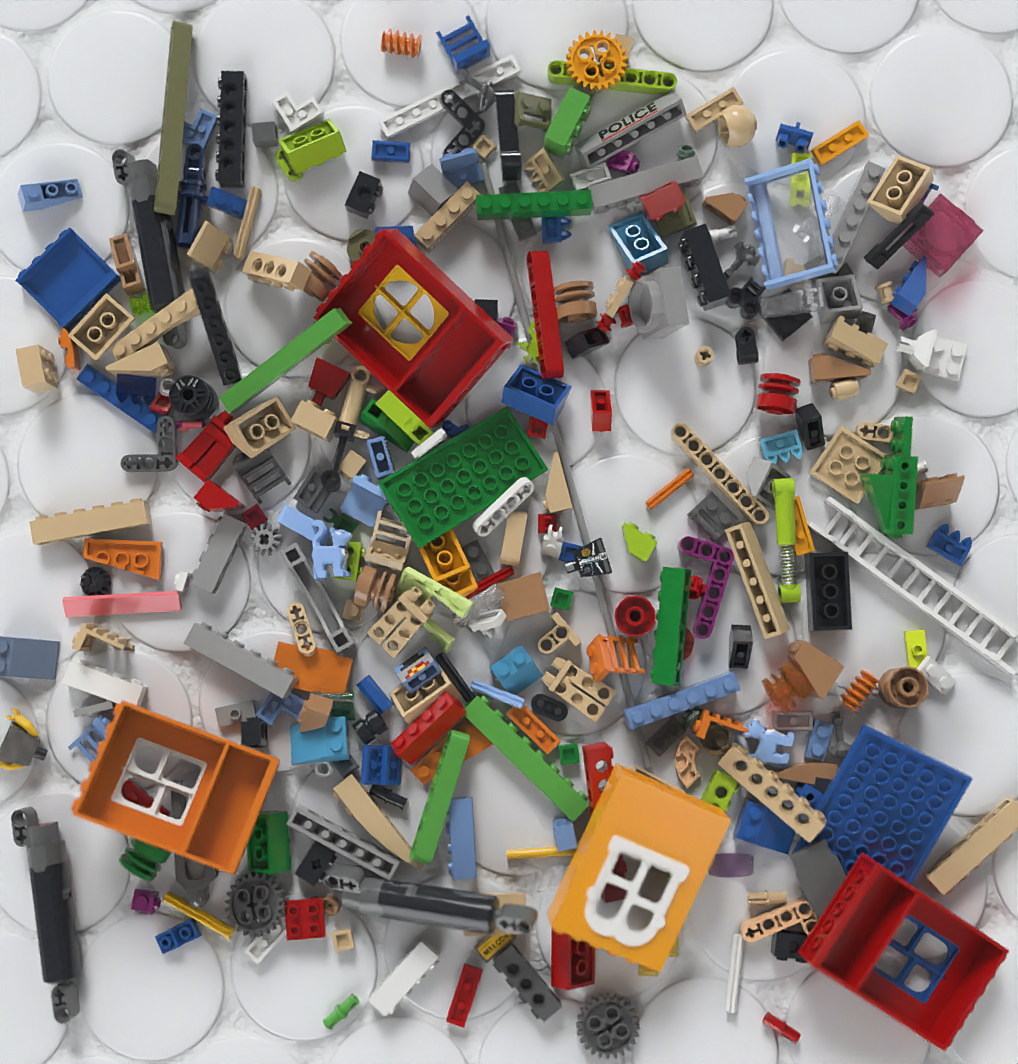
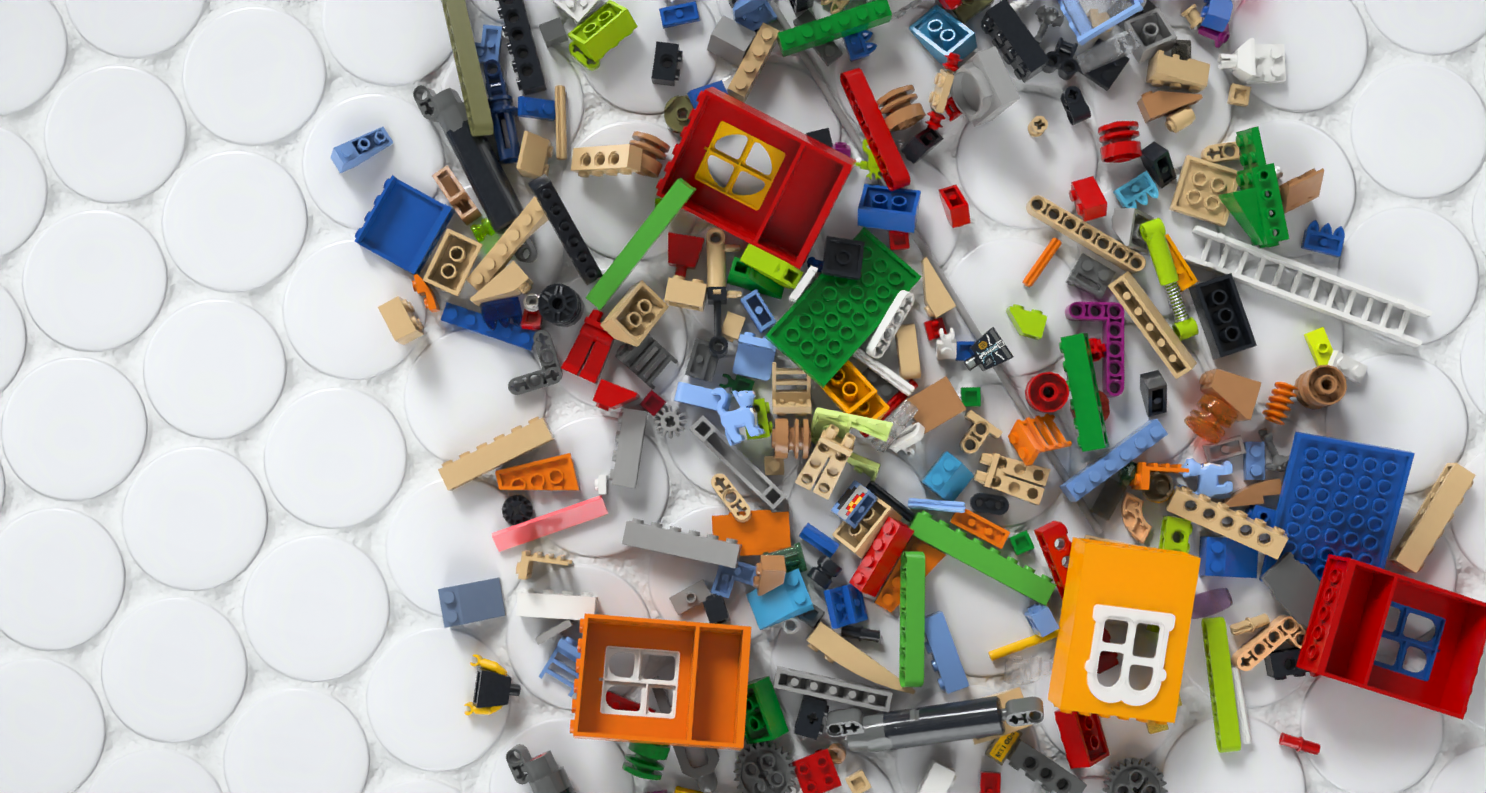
camera: 20 degrees left, 0 degrees up
(186, 425) = (559, 335): coral piece -> none
(475, 429) = (842, 258): none -> black plate
(484, 550) = (884, 372): none -> white axle
(722, 947) = (1221, 684): none -> lime beam
(731, 440) = (1088, 198): none -> red brick

